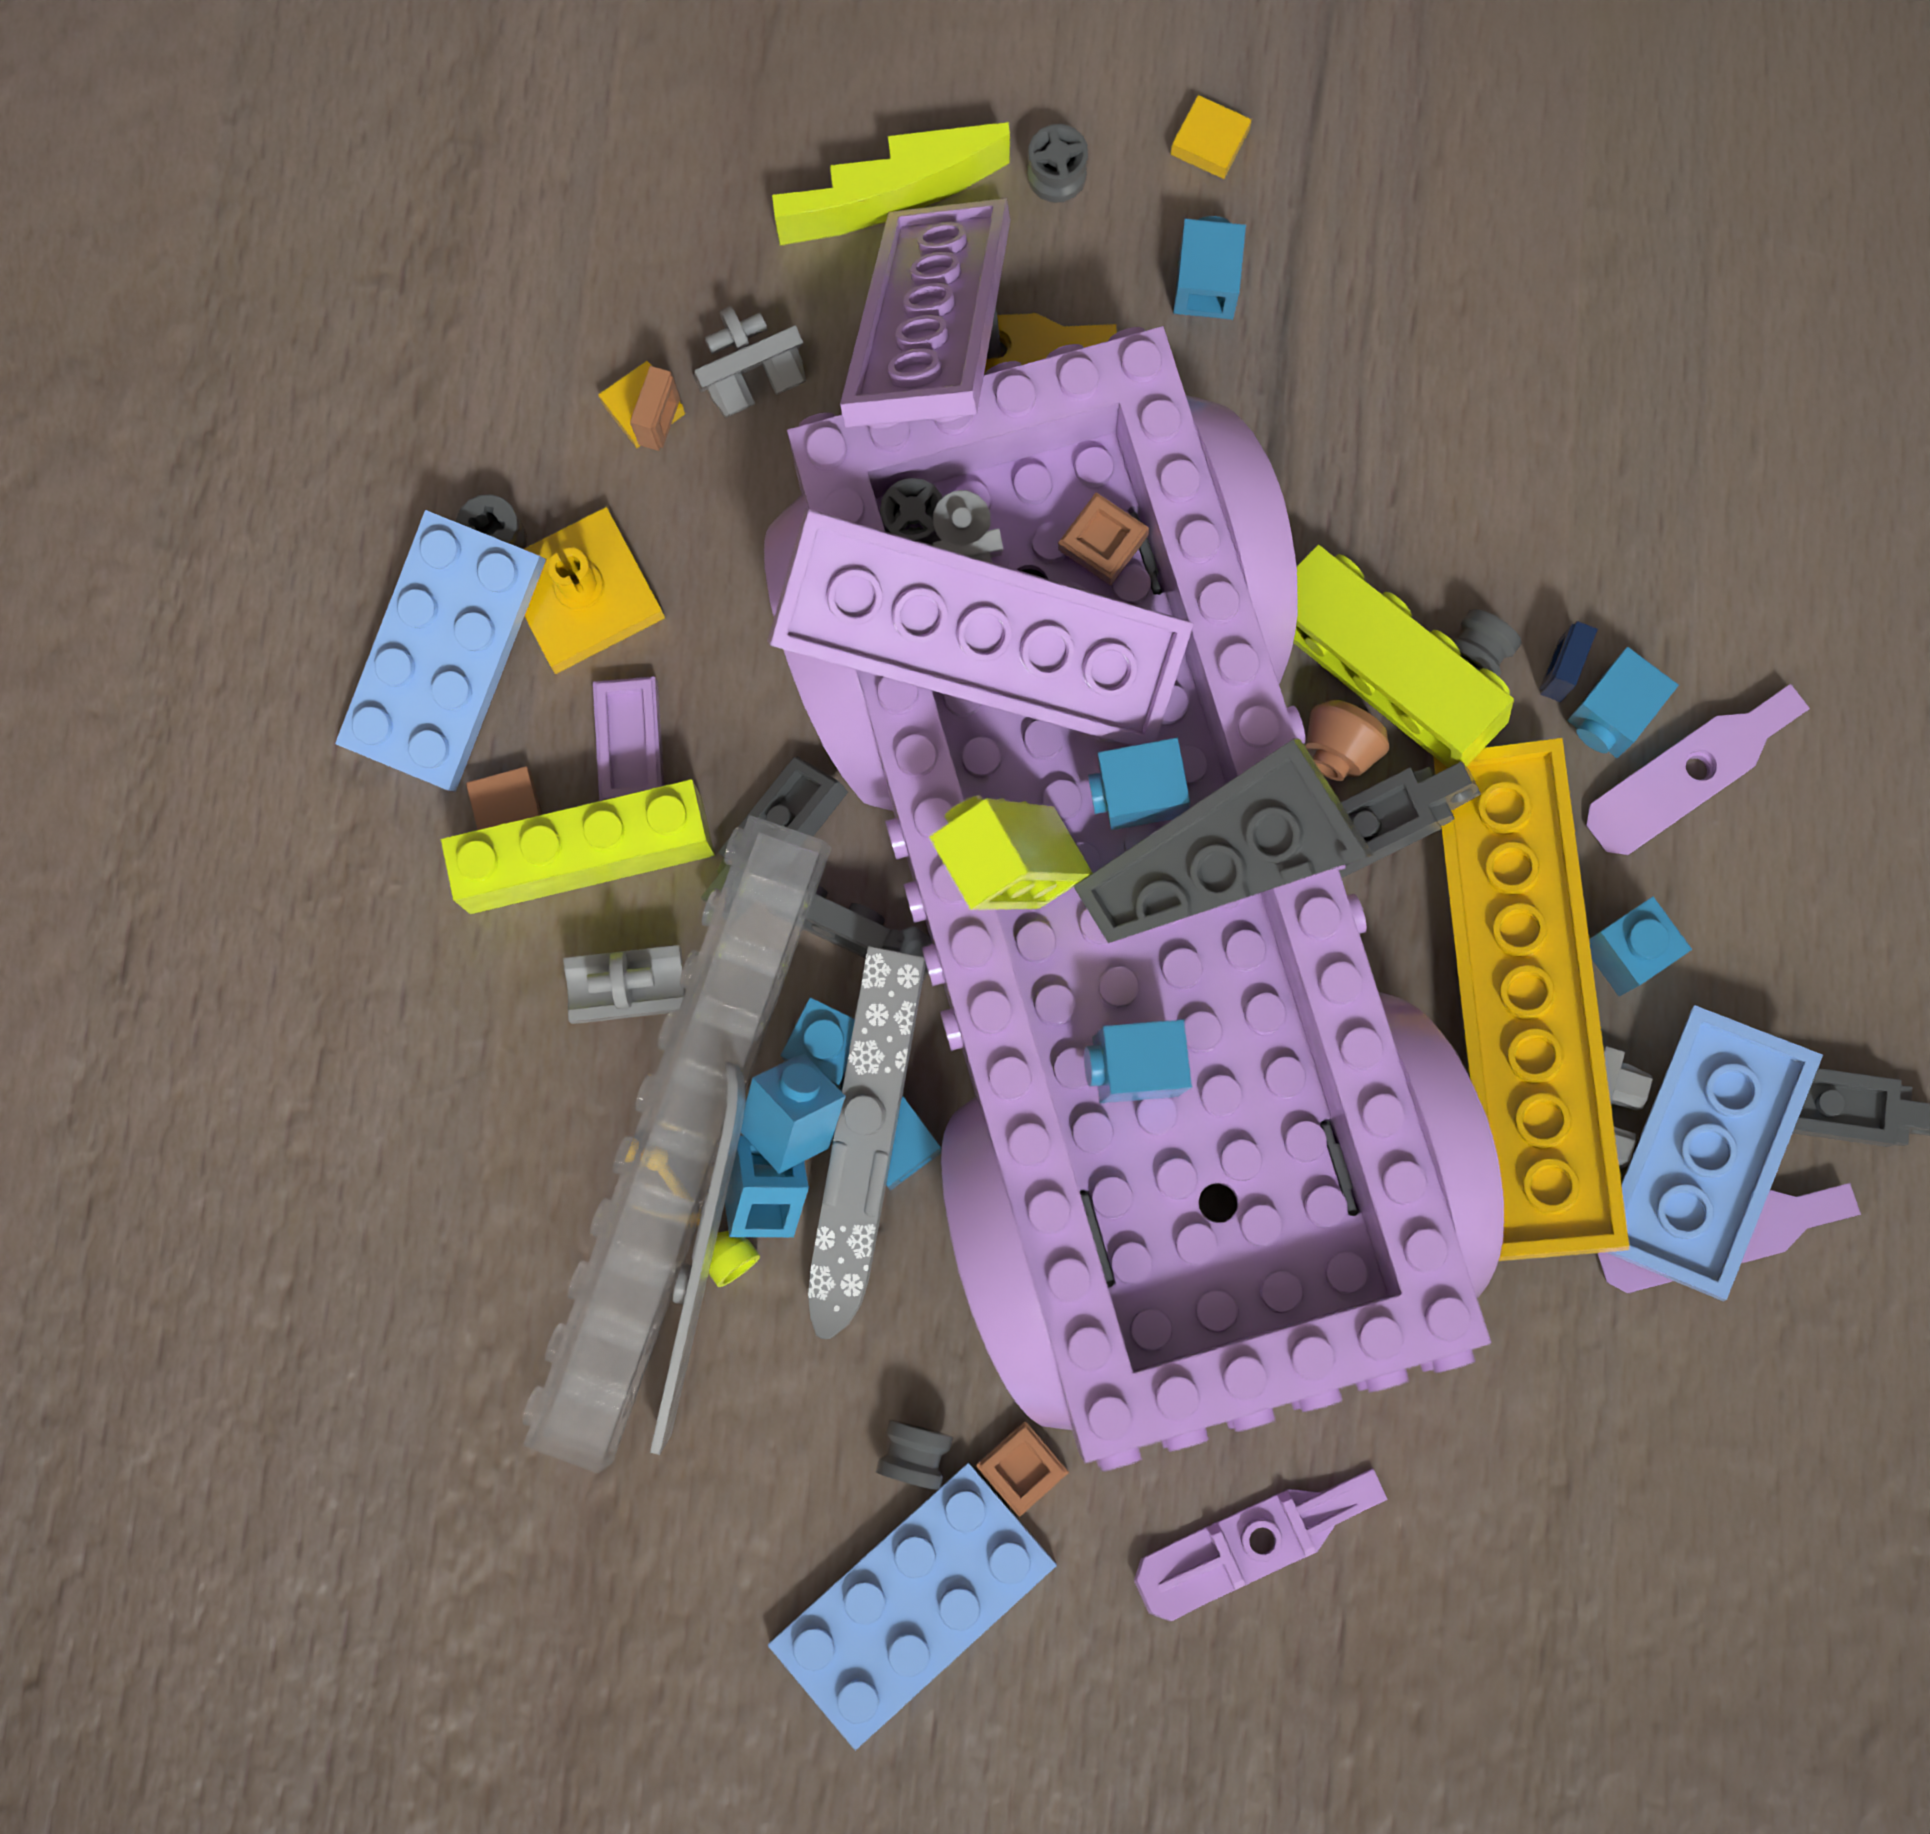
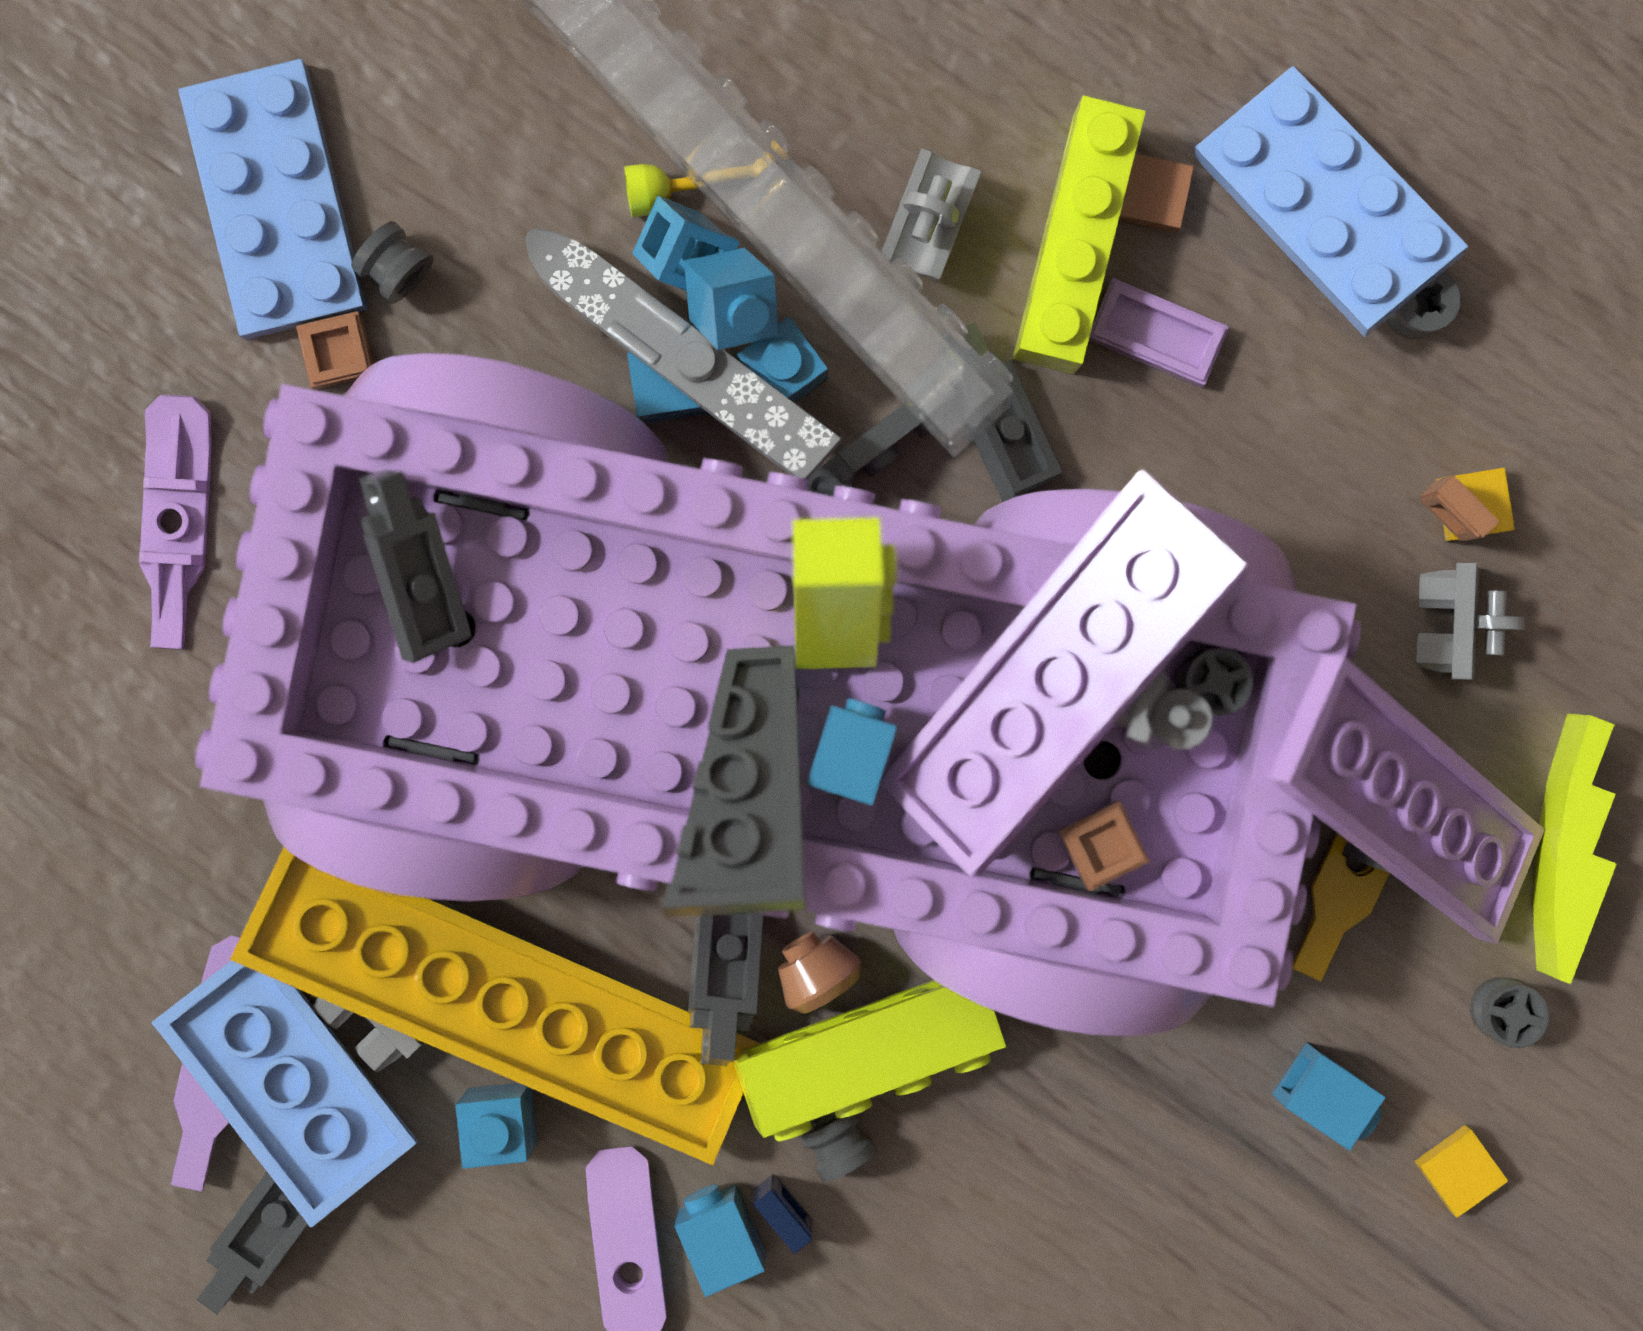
camera: 115 degrees right, 10 degrees up
(587, 592) = (1319, 365): yellow tile -> none
(693, 1278) = (635, 143): light grey piece -> none
(1138, 1061) = (605, 617): dark azure brick -> none
(1188, 1258) = (411, 568): none -> dark grey hinge

